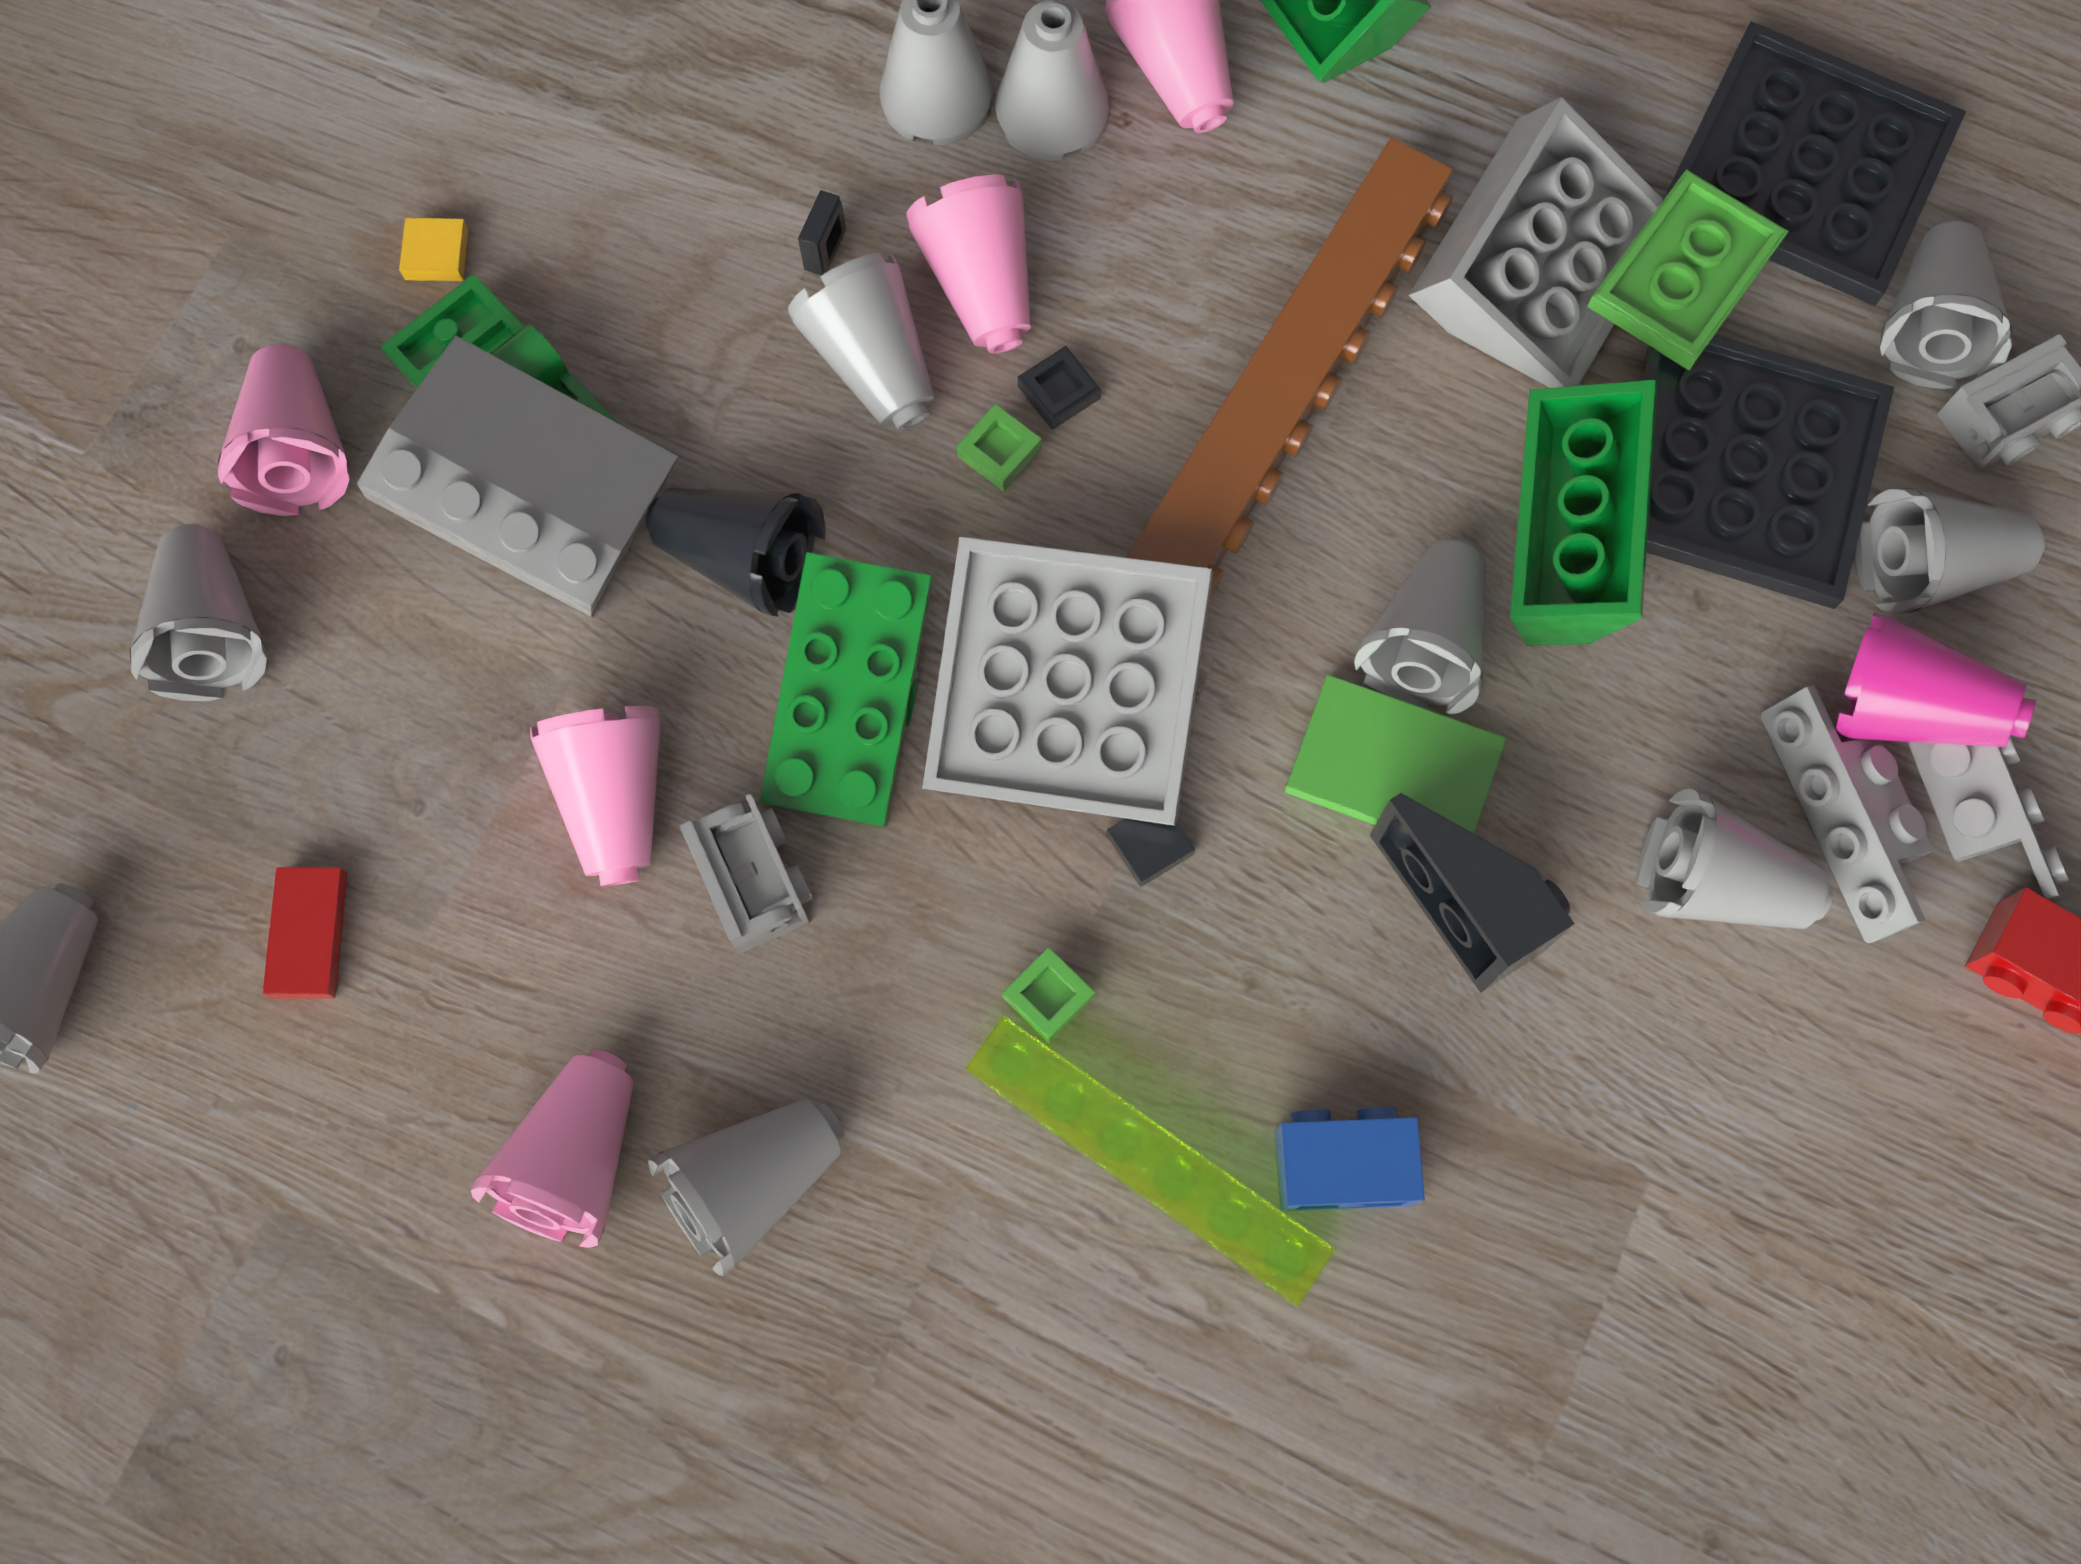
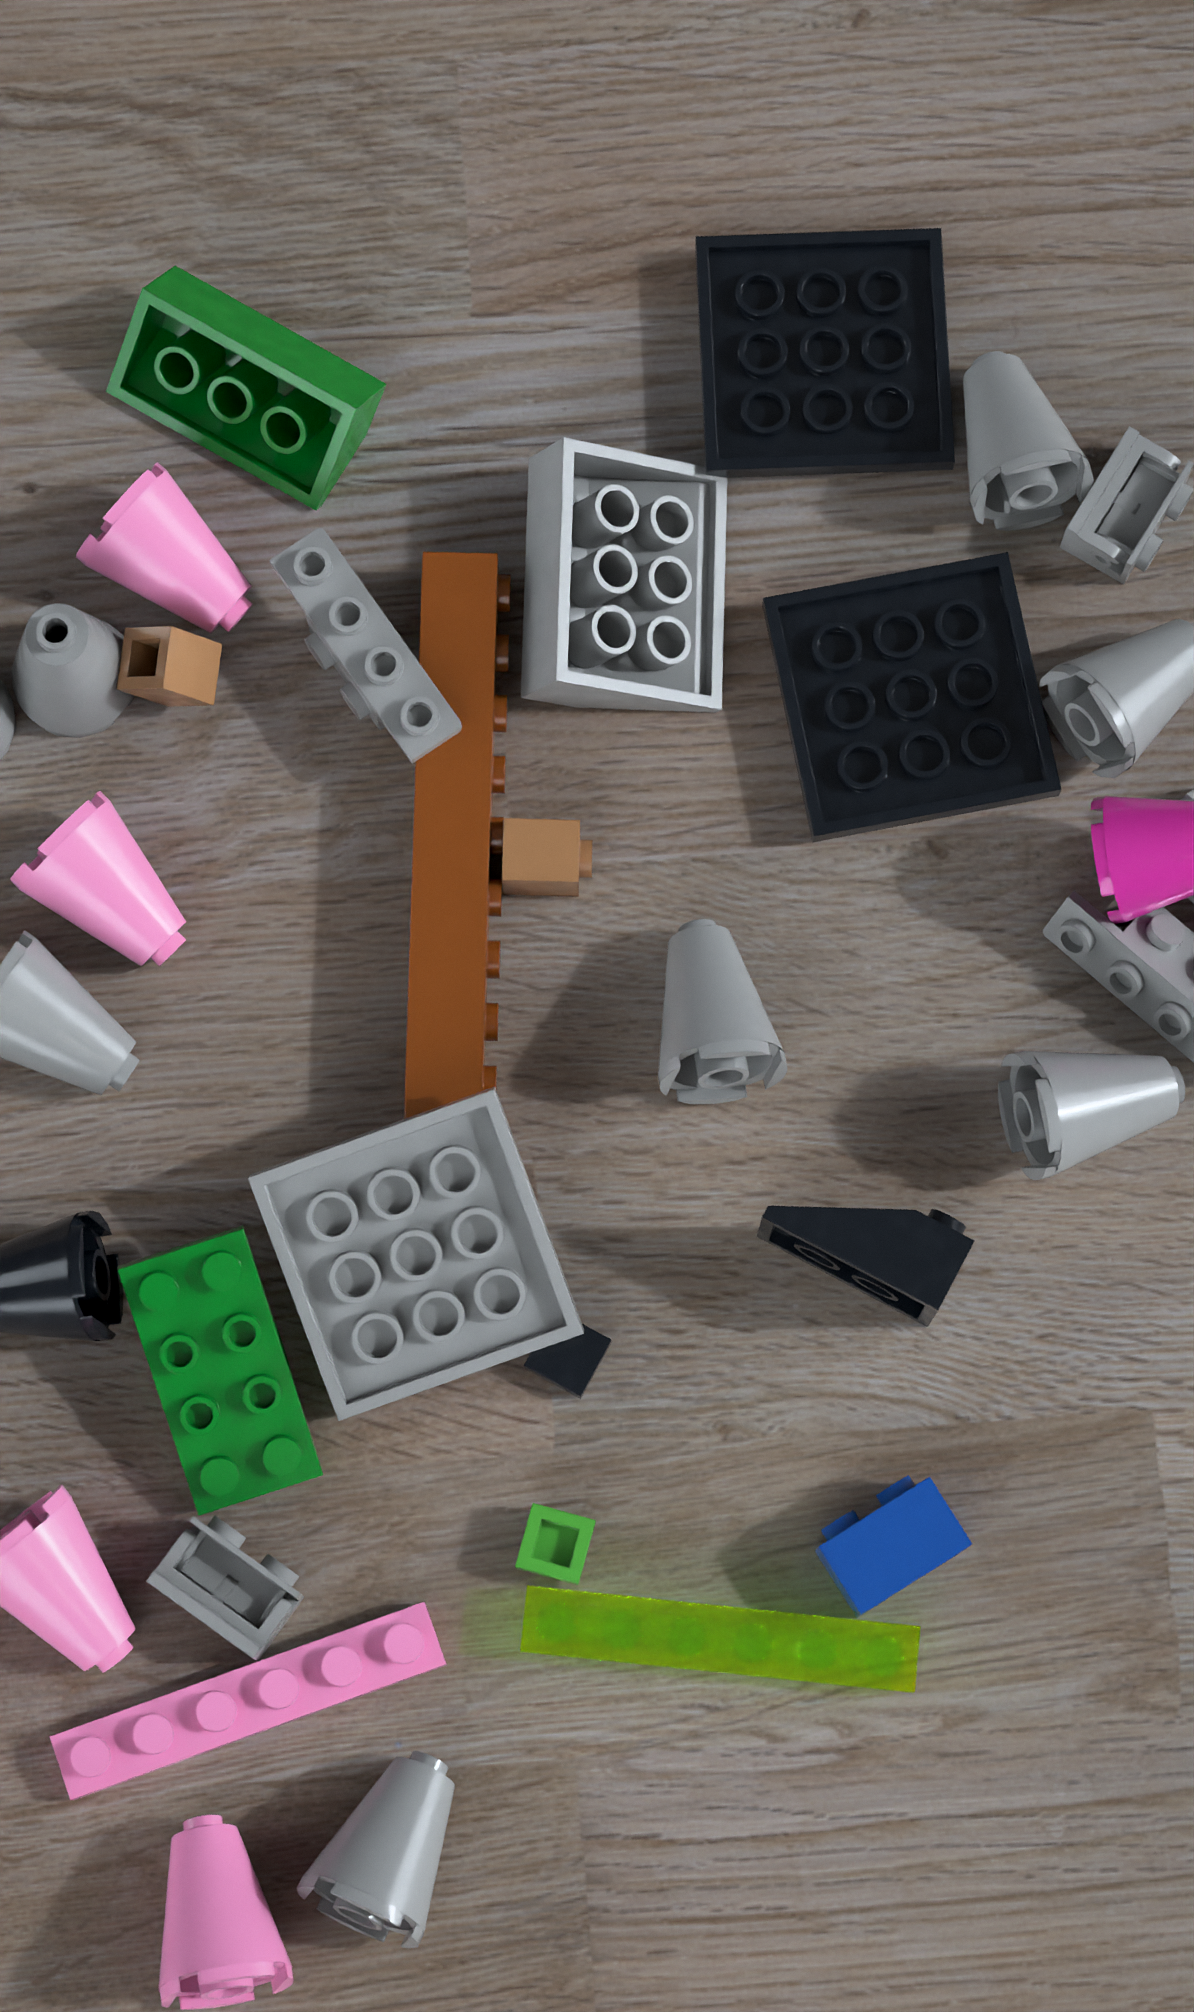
camera: 30 degrees left, 5 degrees up
(710, 981) = (247, 1701): none -> bright pink plate
(999, 447) = (223, 1056): bright green plate -> none
(1059, 387) = (243, 962): black tile -> none
(1132, 125) = (169, 666): none -> medium nougat brick
(1299, 187) = (364, 647): none -> light grey bracket
(1357, 428) = (544, 857): none -> medium nougat brick
(1373, 747) = (735, 1156): bright green tile -> none
(1583, 512) = (789, 838): green slope -> none
(1687, 269) = (764, 536): bright green tile -> none

